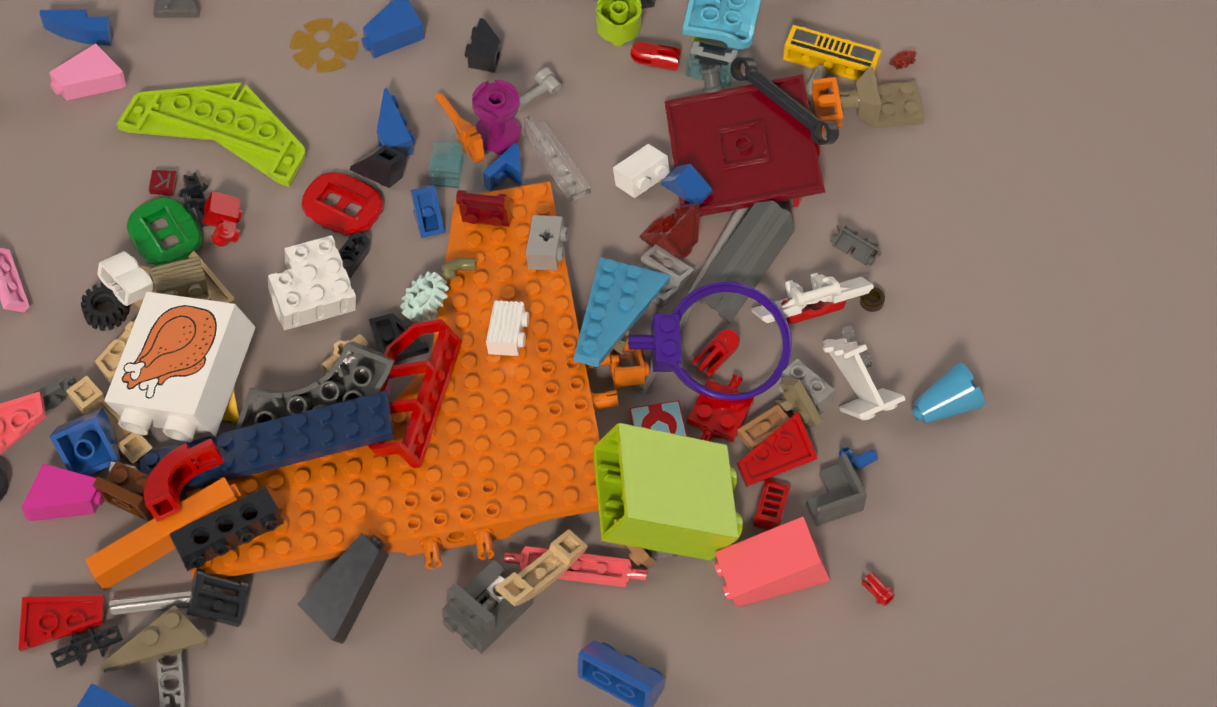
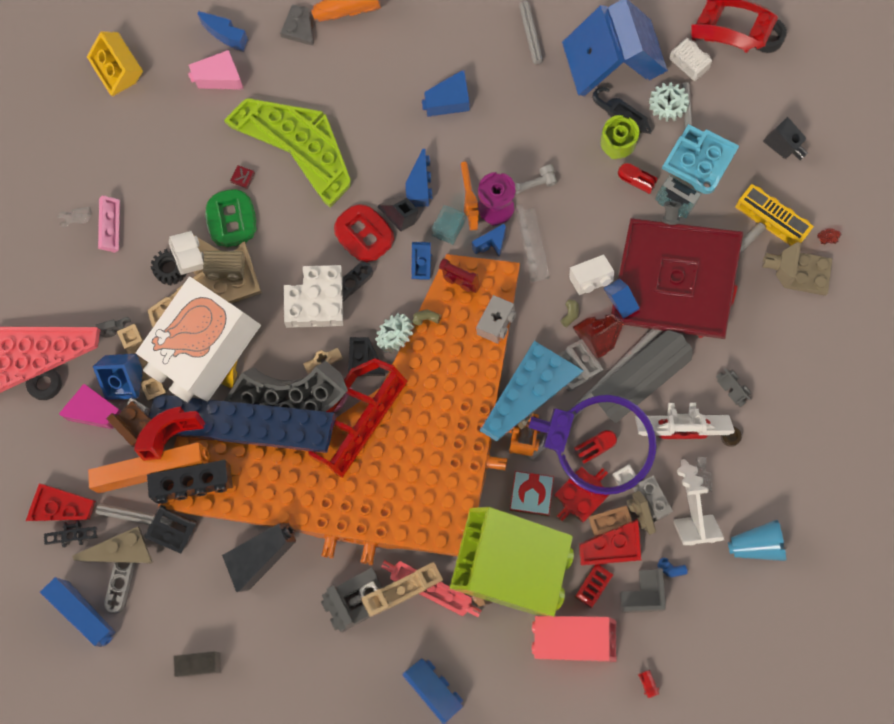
camera: 25 degrees right, 15 degrees up
(194, 202) = (261, 189): black piece -> none
(223, 213) = (275, 217): red brick -> none
(337, 42) = (407, 101): clear yellow piece -> none
(484, 49) = (509, 134): black slope -> none
(507, 328) = (442, 384): white brick -> none
(634, 219) = (573, 313): none -> olive arm
(760, 375) = (624, 475): none -> white tile
(784, 100) = (720, 252): black piece -> none
(827, 101) = (754, 262): orange window -> none

